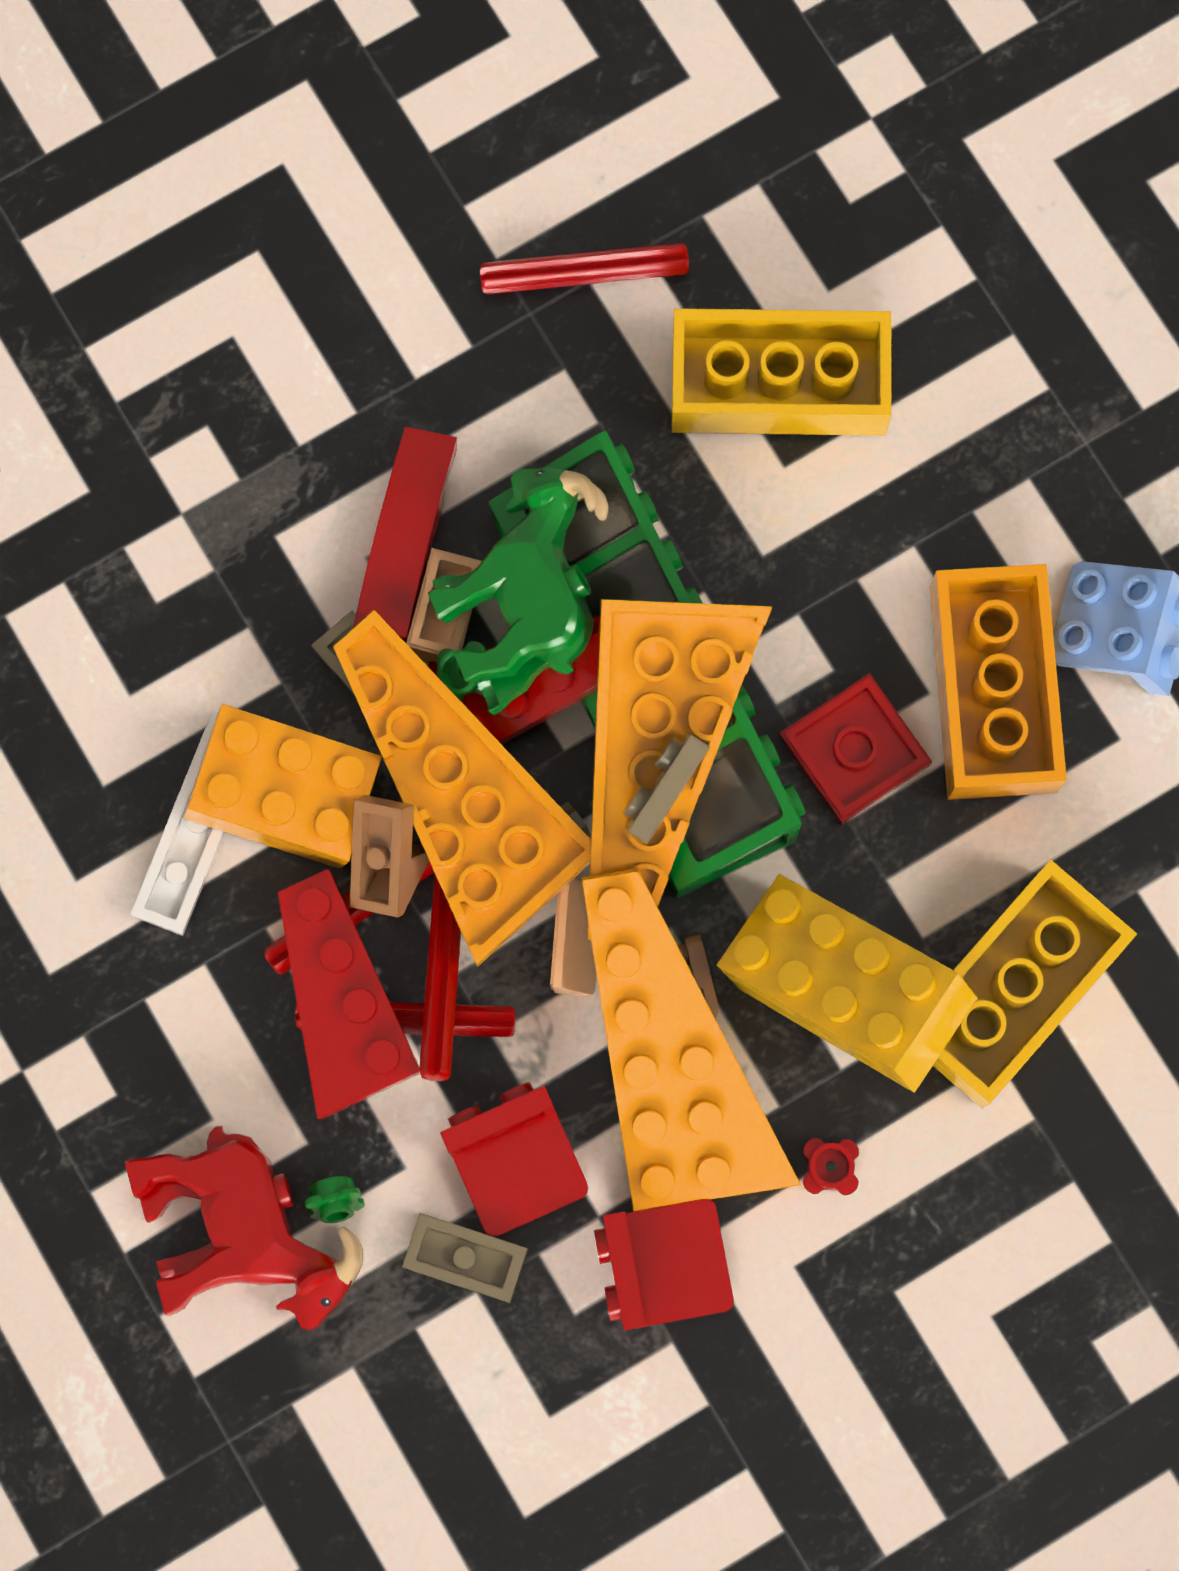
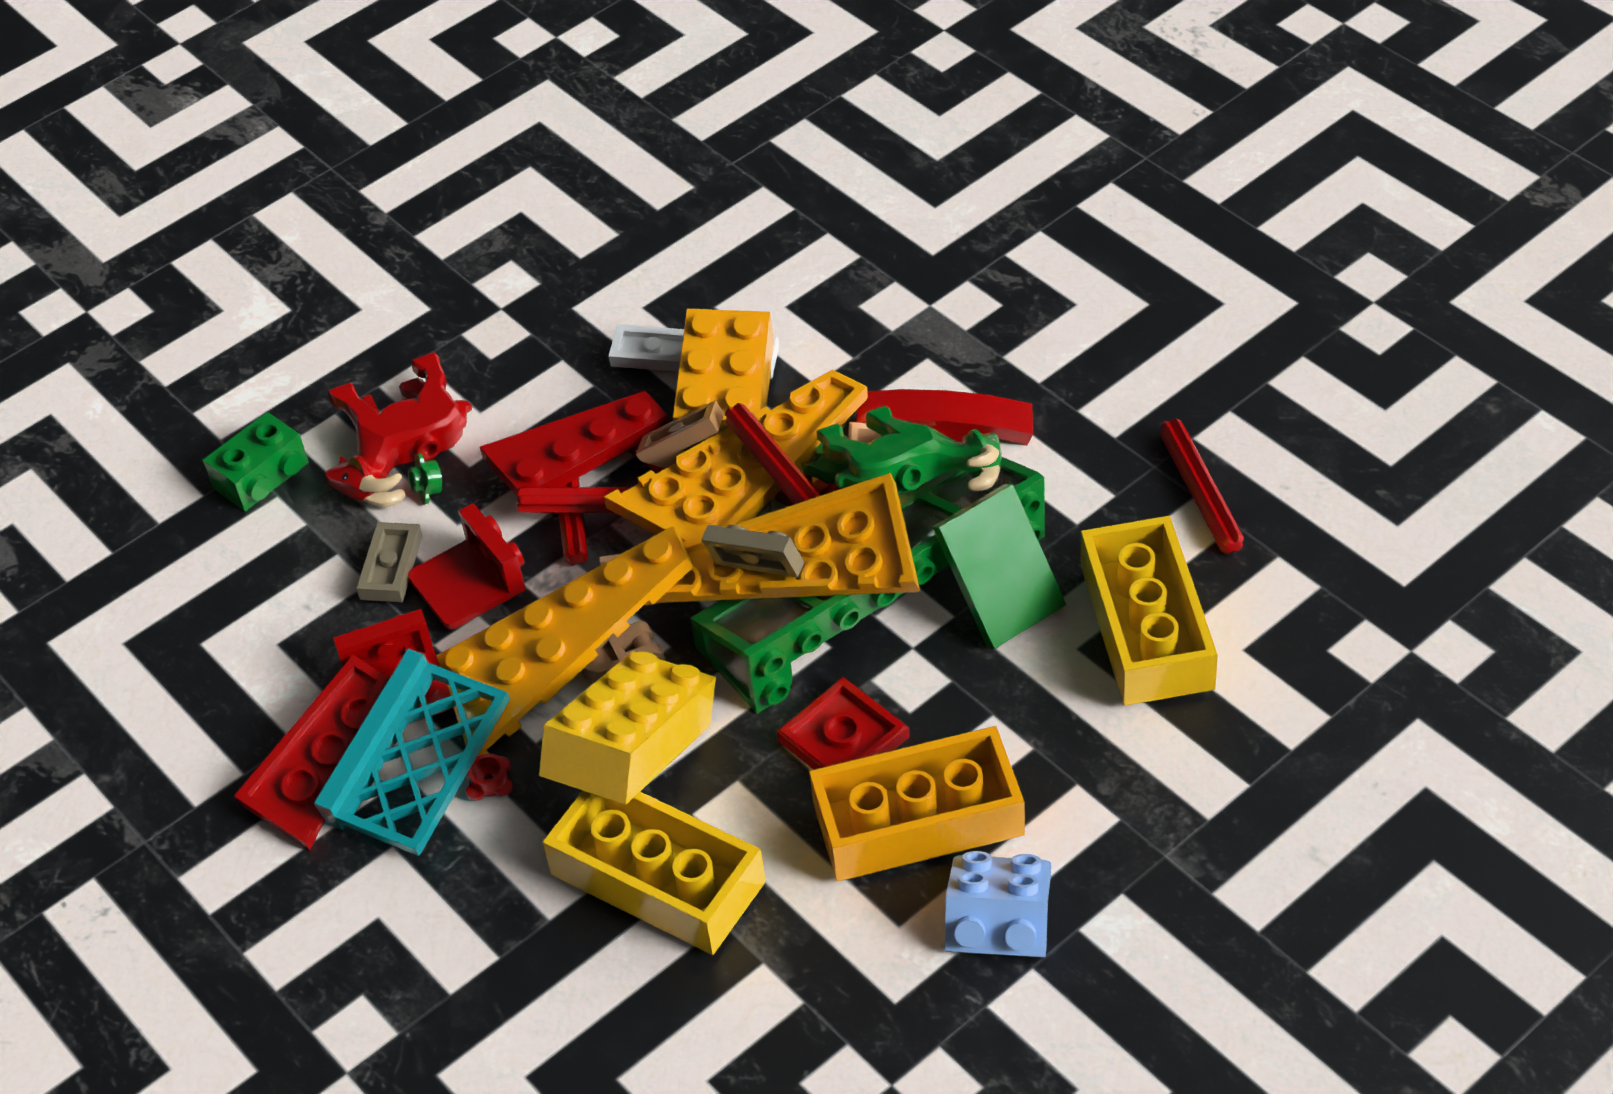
camera: 80 degrees right, 30 degrees down
(245, 1423) = (256, 461): none -> green brick
(489, 740) = (769, 454): none -> red axle
(696, 516) = (999, 565): none -> tile
(770, 1288) = (375, 745): none -> teal fence
(773, 1378) = (302, 762): none -> red wing

